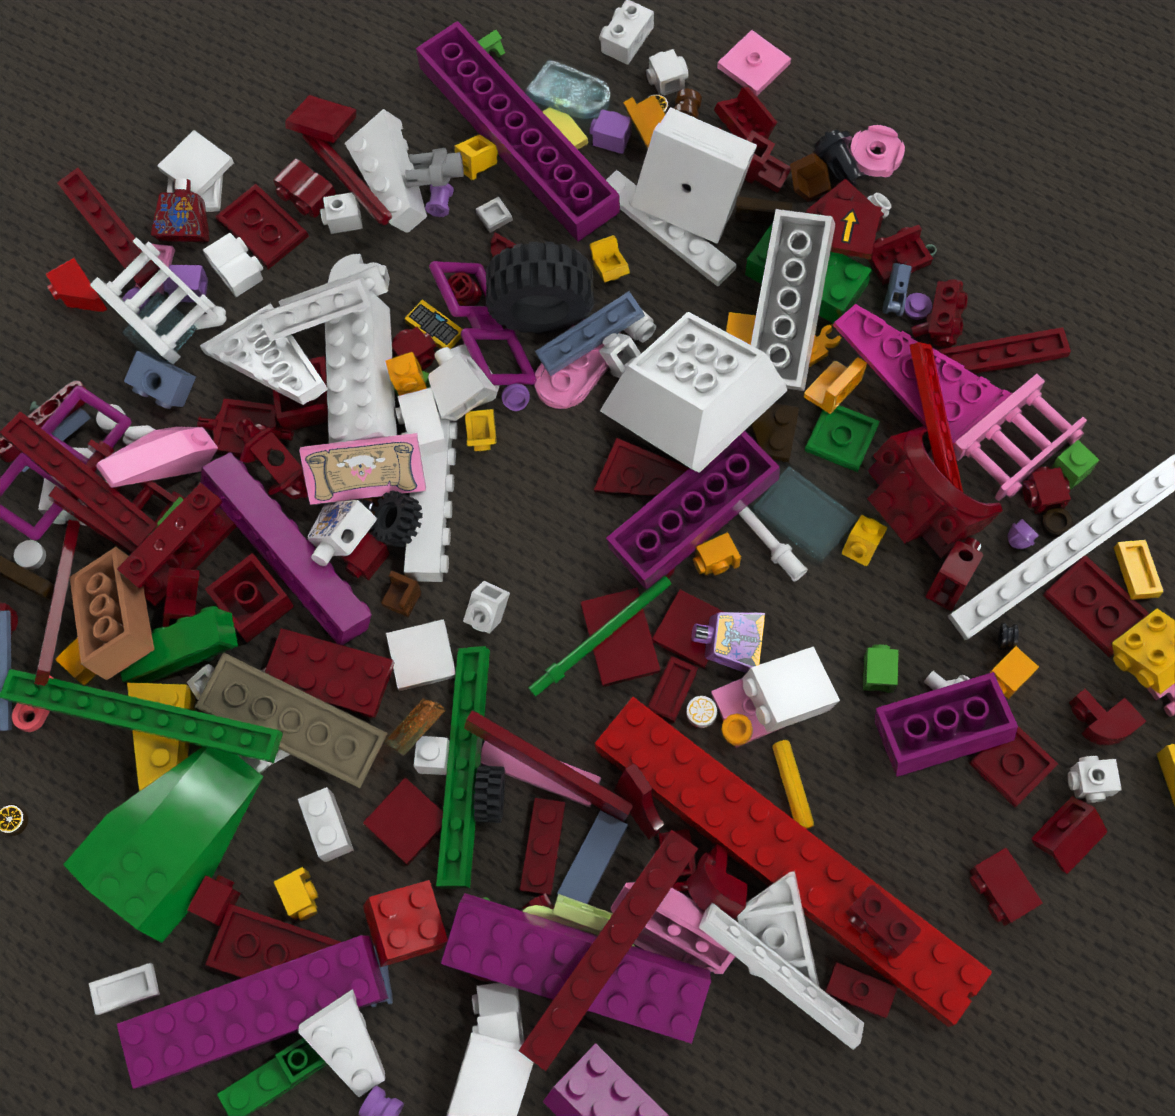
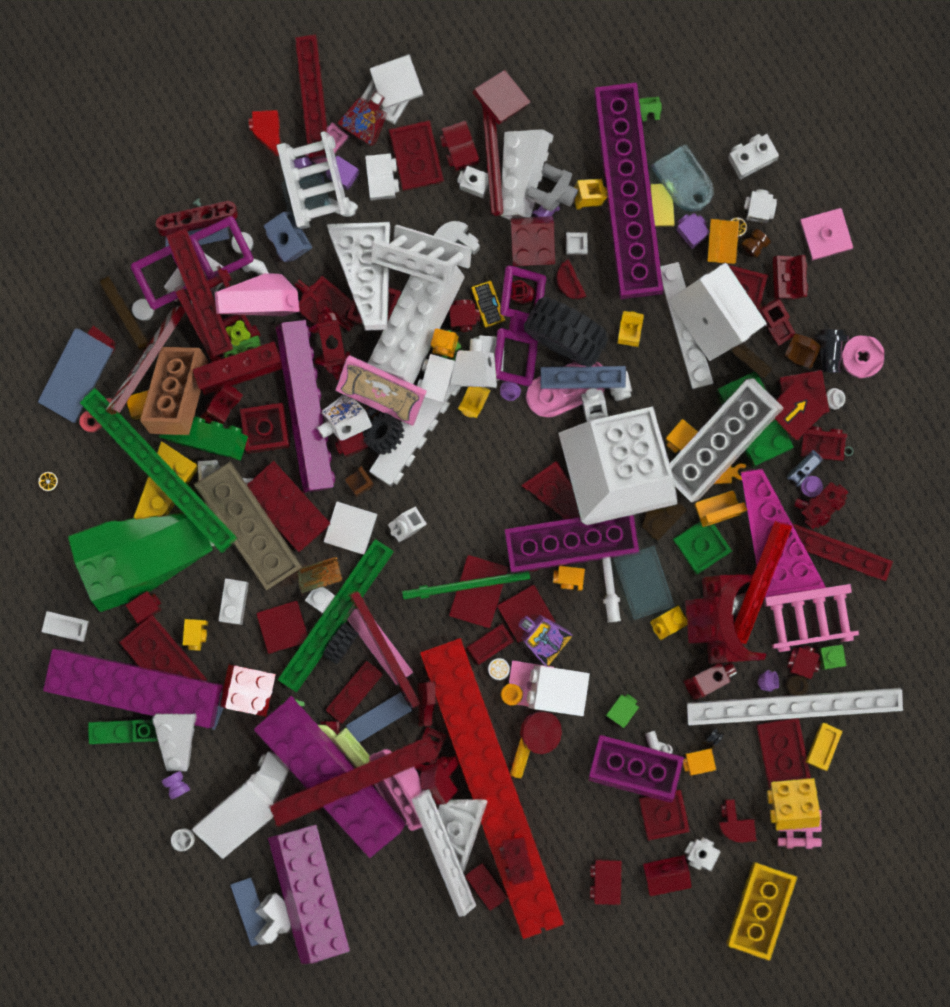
camera: 30 degrees right, 15 degrees up
(163, 506) = (244, 334): none -> lime plate
(443, 228) = (533, 241): none -> dark red brick
(801, 753) = (541, 732): none -> dark red tile

